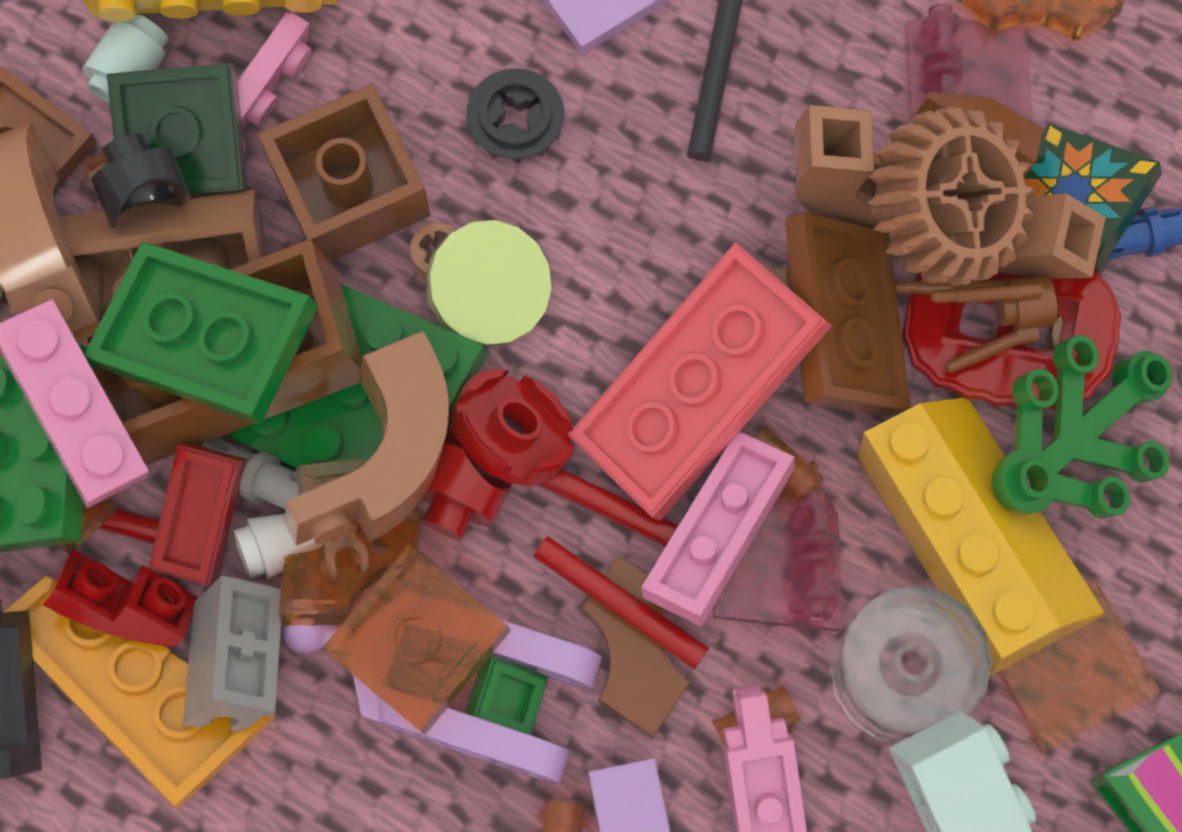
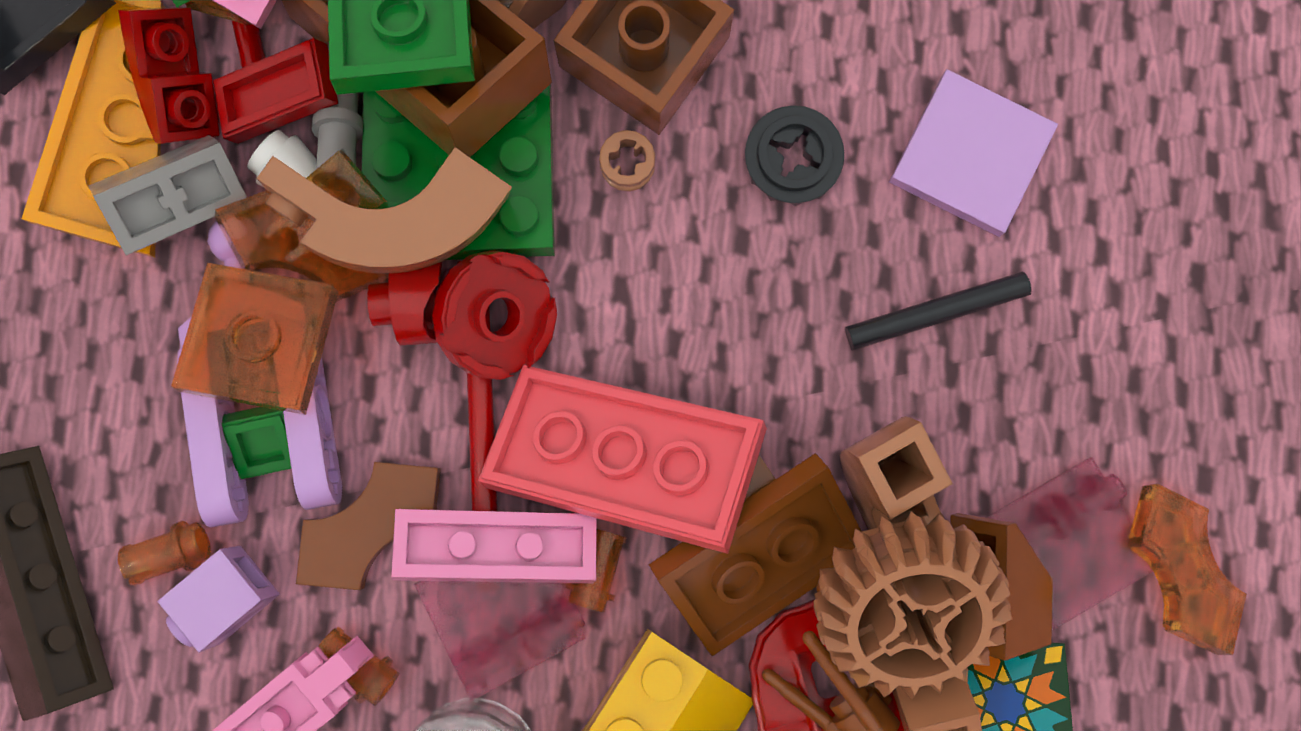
camera: 60 degrees right, 10 degrees up
(488, 282) = (619, 219): yellowish green tile -> none
(621, 602) = (392, 491): red bar -> none

